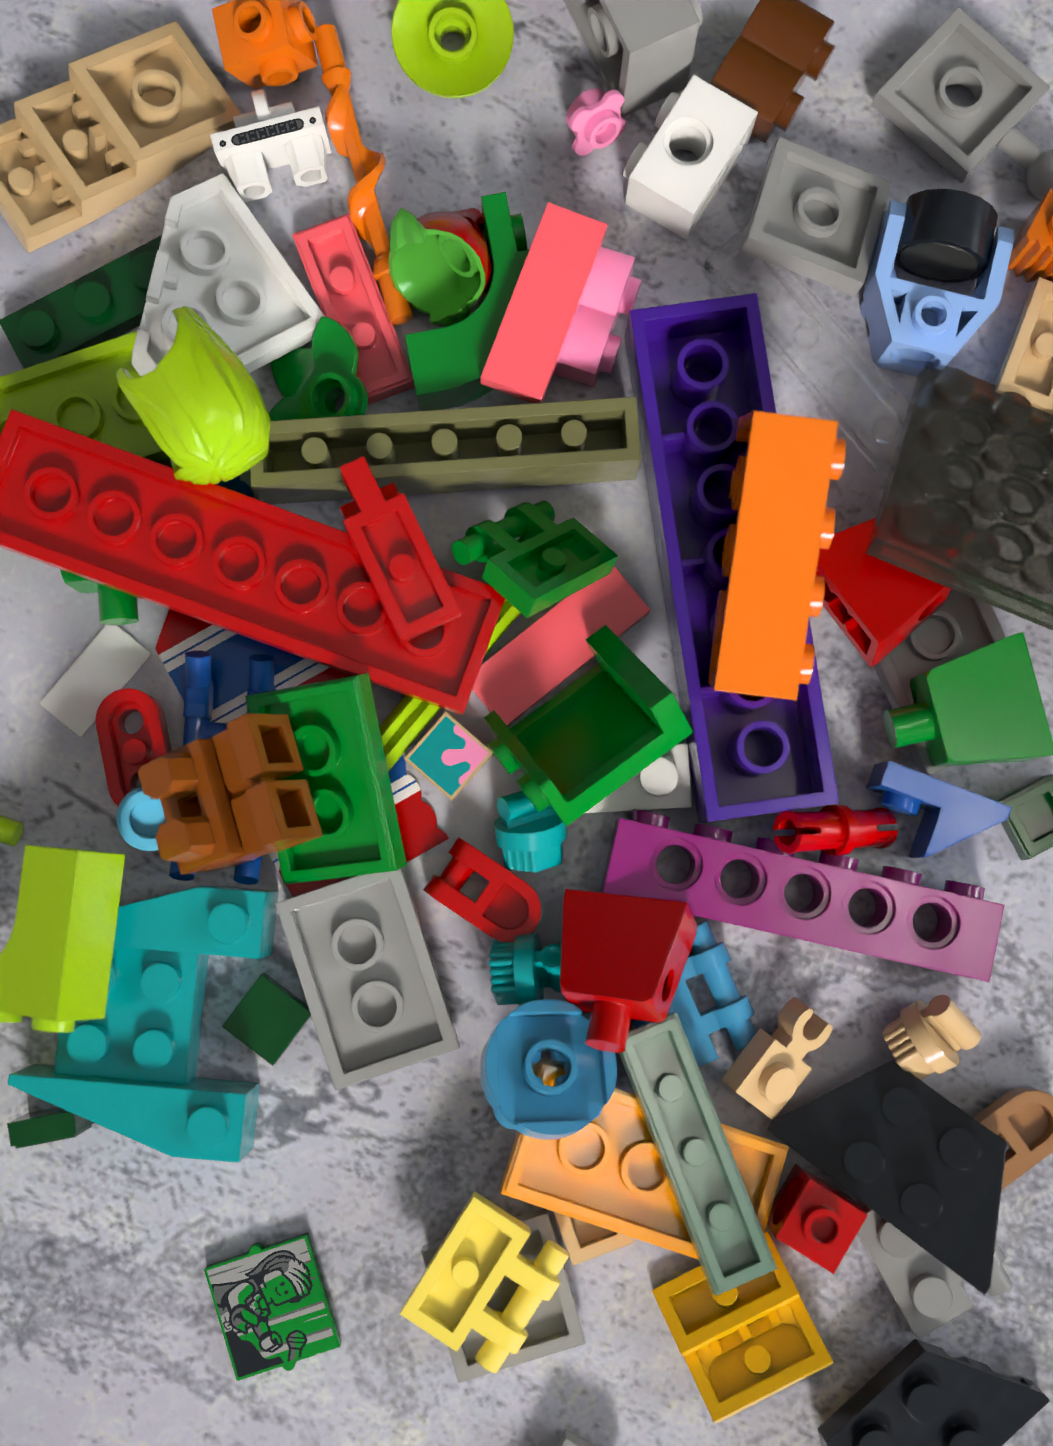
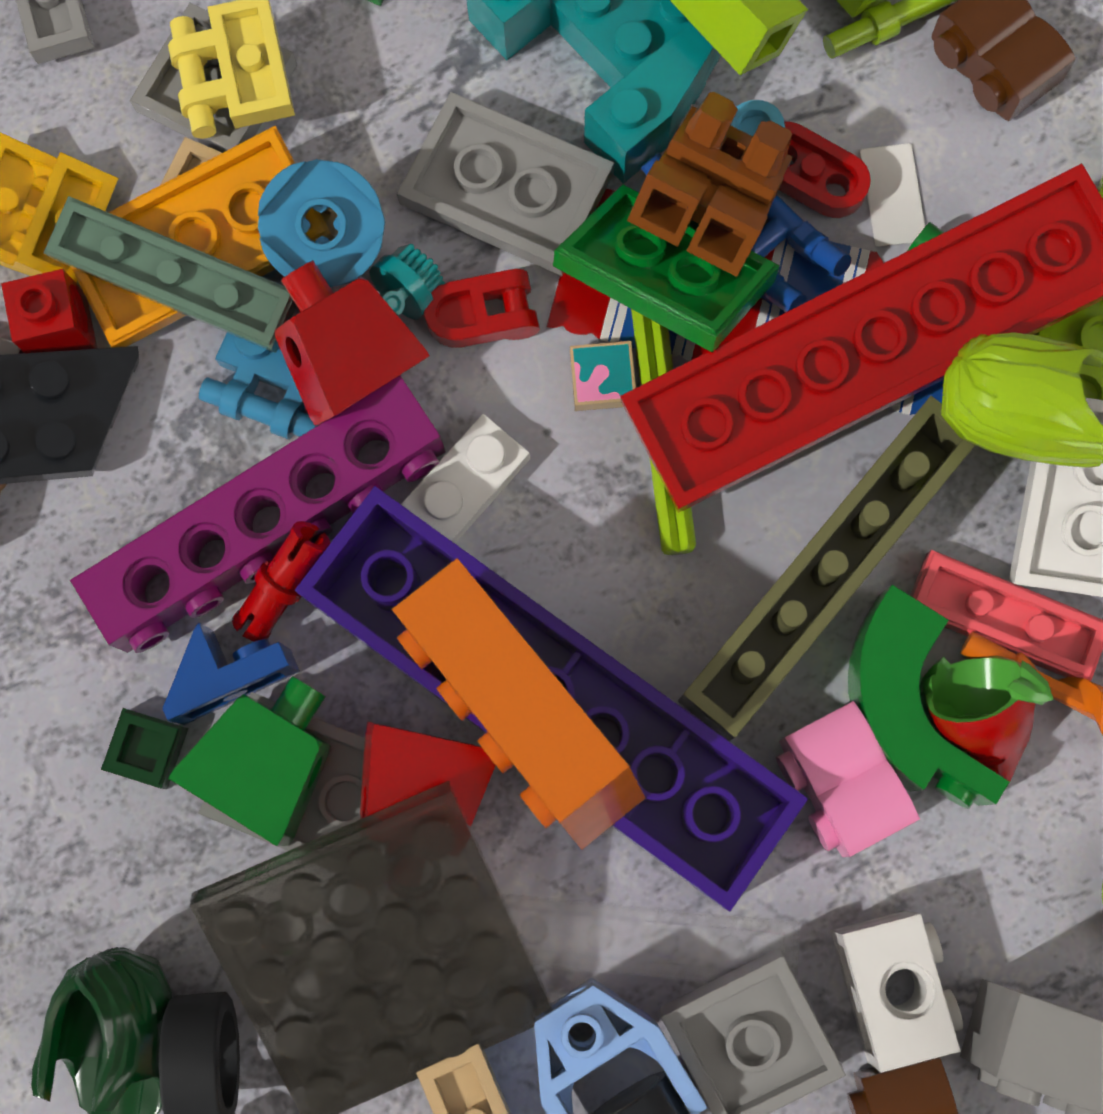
camera: 140 degrees right, 5 degrees down
(268, 1019) = (543, 96): dark green tile -> none
(319, 375) = (973, 533): green plate -> none
(395, 554) = (781, 443): red hinge -> none
(527, 837) = (494, 378): teal piece -> none
(534, 558) = (671, 551): green plate -> none
(543, 304) = (876, 743): coral tile -> none
(556, 646) = (608, 526): coral tile -> none
(591, 732) = (520, 471): green panel -> none
(595, 119) = (995, 945): bright pink plate -> none
(773, 1065) = (170, 390): tan plate -> none
(929, 1036) = (79, 511): tan piece -> none

